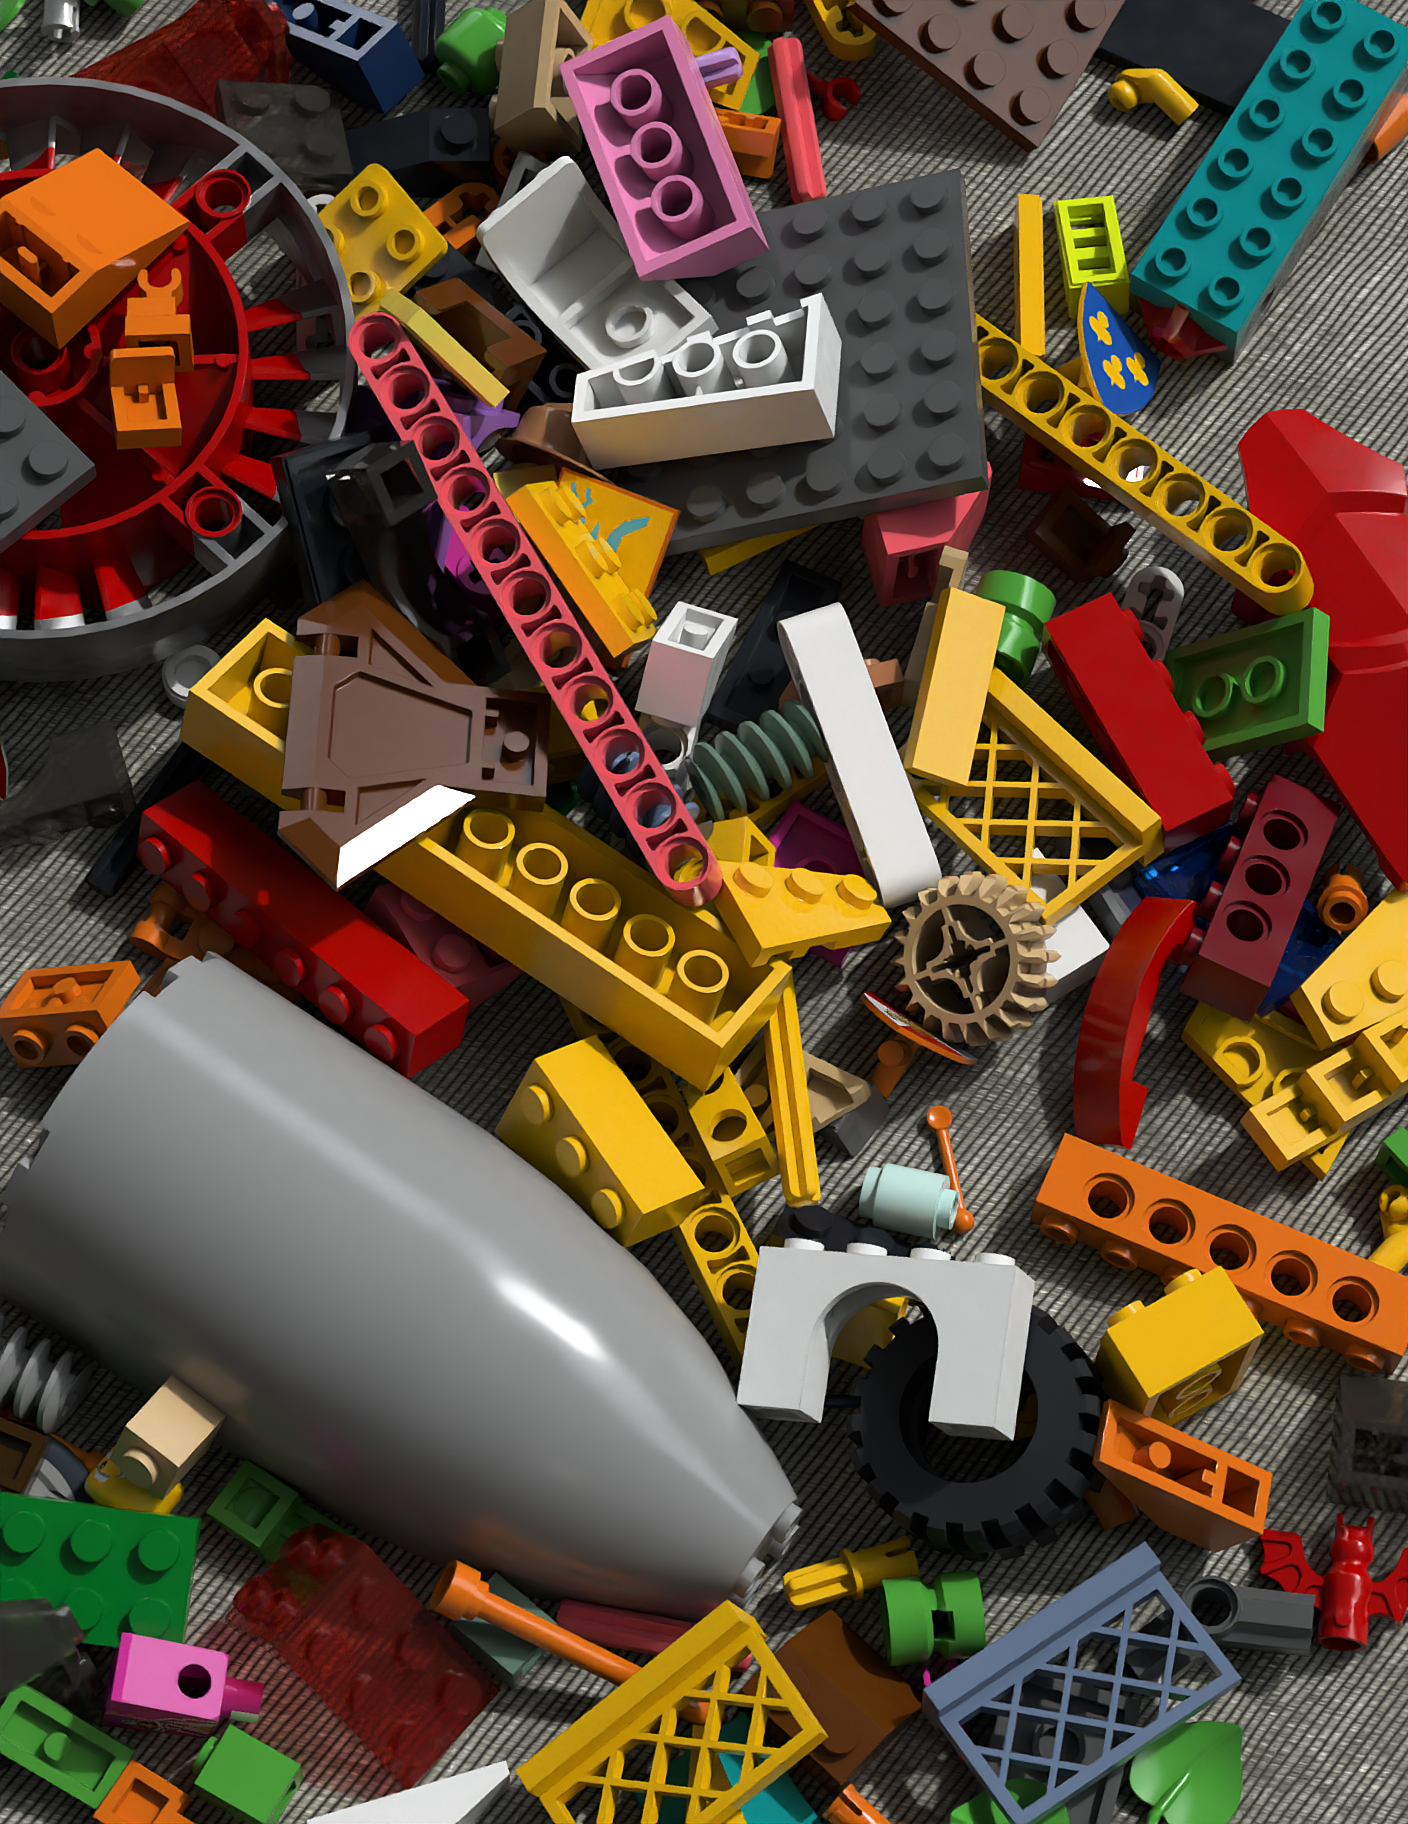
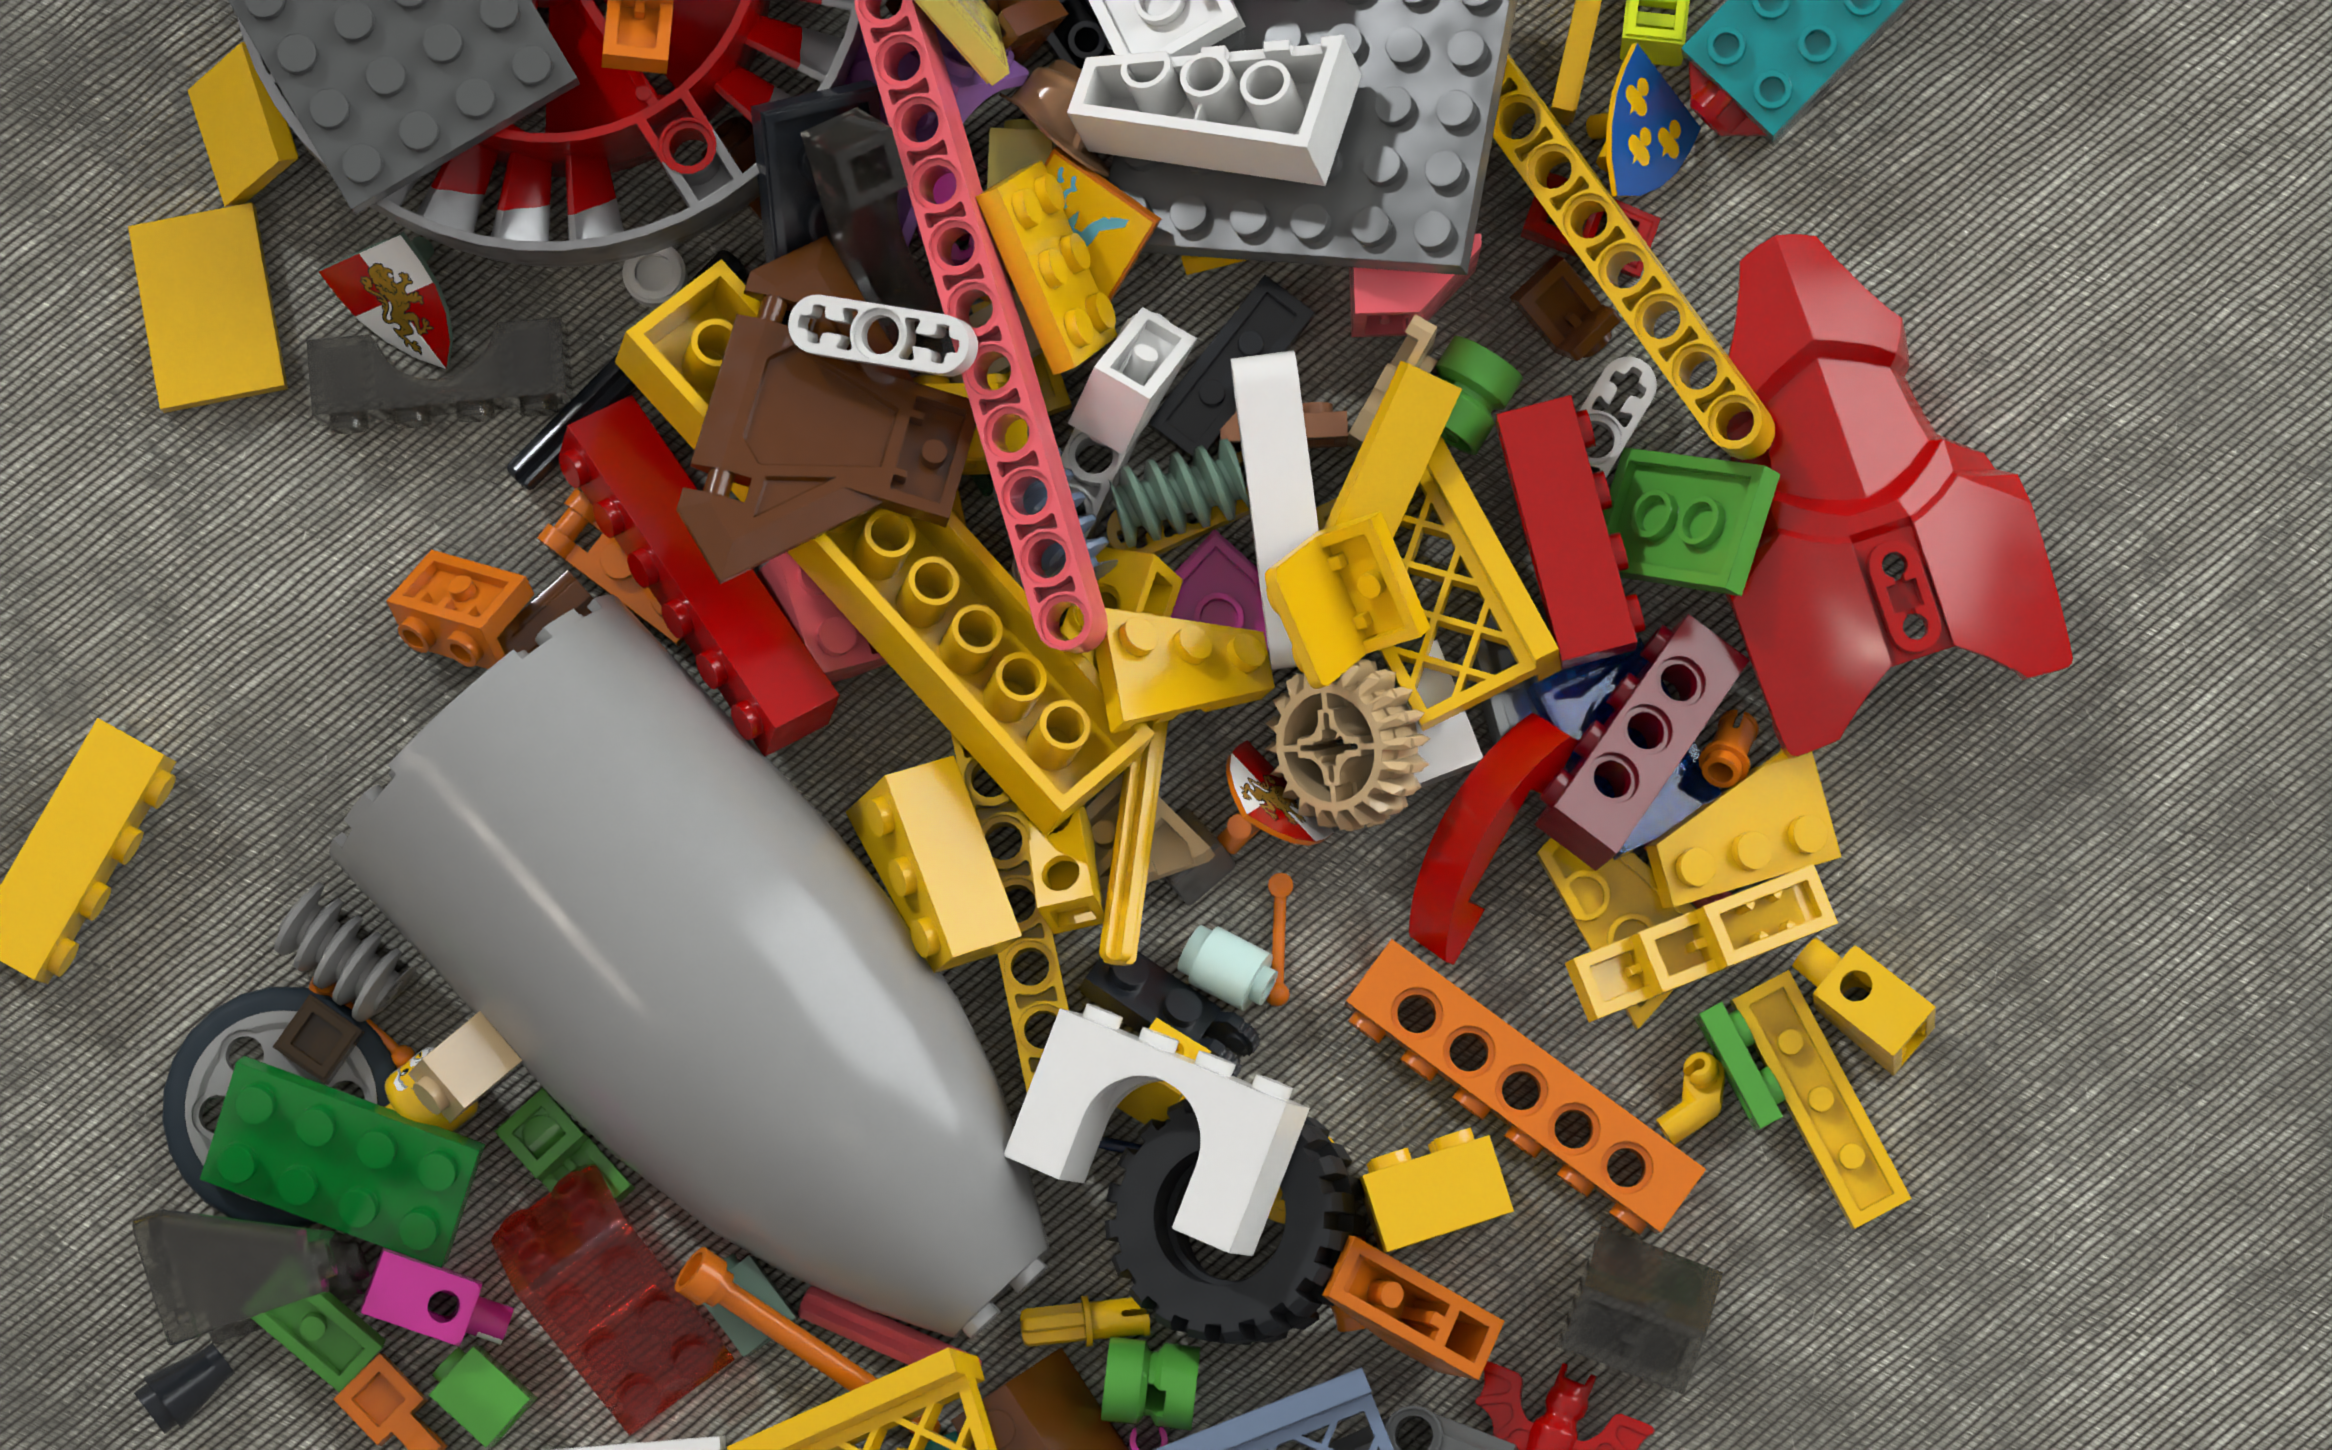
camera: 20 degrees right, 15 degrees up
(489, 617) = (841, 311): none -> white beam
(946, 806) = (1344, 597): none -> yellow bracket

